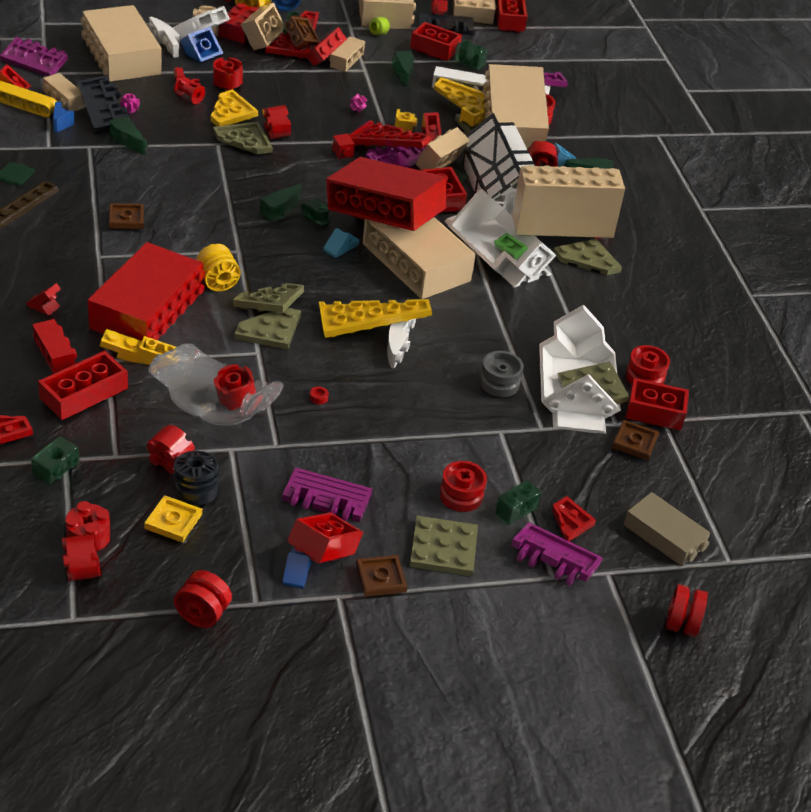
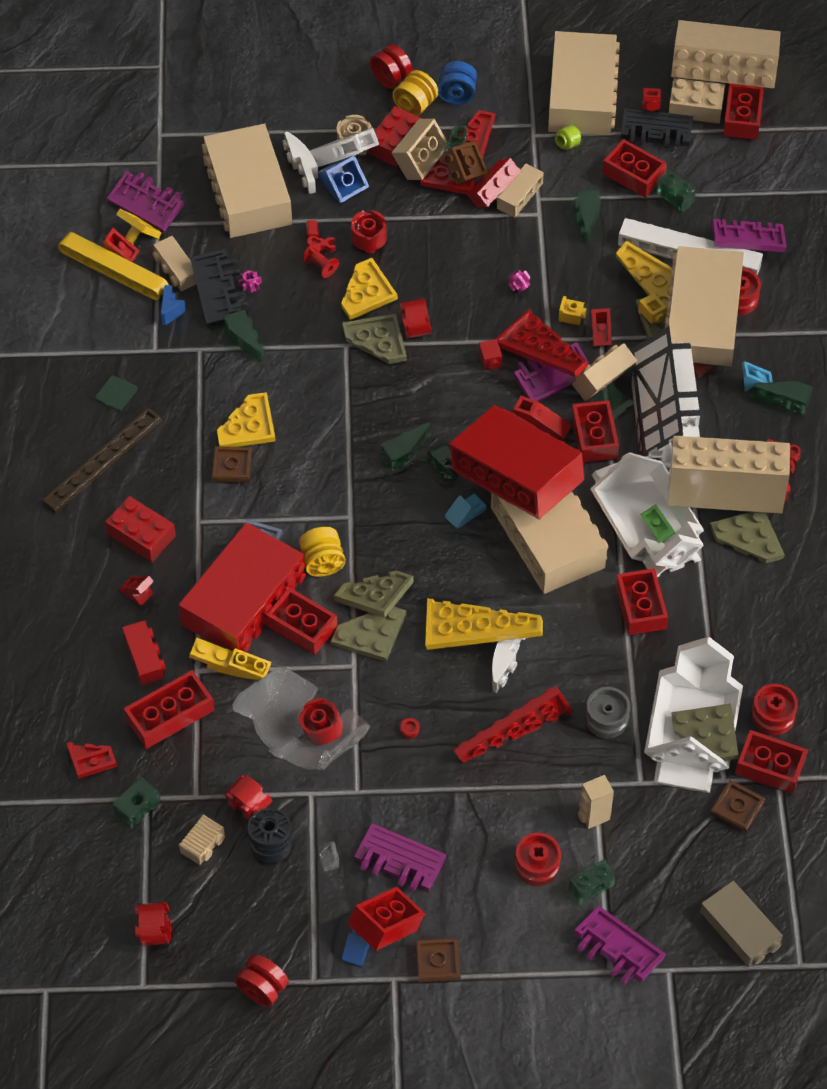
camera: 15 degrees right, 15 degrees up
(28, 66) = (137, 226): none -> yellow tile
(44, 258) = (140, 529): none -> red brick
(89, 519) = (162, 884): red brick -> none
(126, 487) = (202, 840): none -> tan brick
(140, 189) = (248, 423): none -> yellow plate
(173, 518) = (244, 879): yellow plate -> none
(205, 317) = (301, 621): none -> red brick
(258, 496) = (329, 857): none -> clear slope
(422, 383) = (517, 724): none -> red wing
(444, 546) = (507, 927): olive plate -> none
(510, 434) = (595, 802): none -> tan brick
(511, 297) = (641, 601): none -> red brick
(543, 154) = (724, 382): red brick -> none
(571, 518) = (644, 904): red wing -> none
(690, 611) = (727, 1026): red wheel -> none

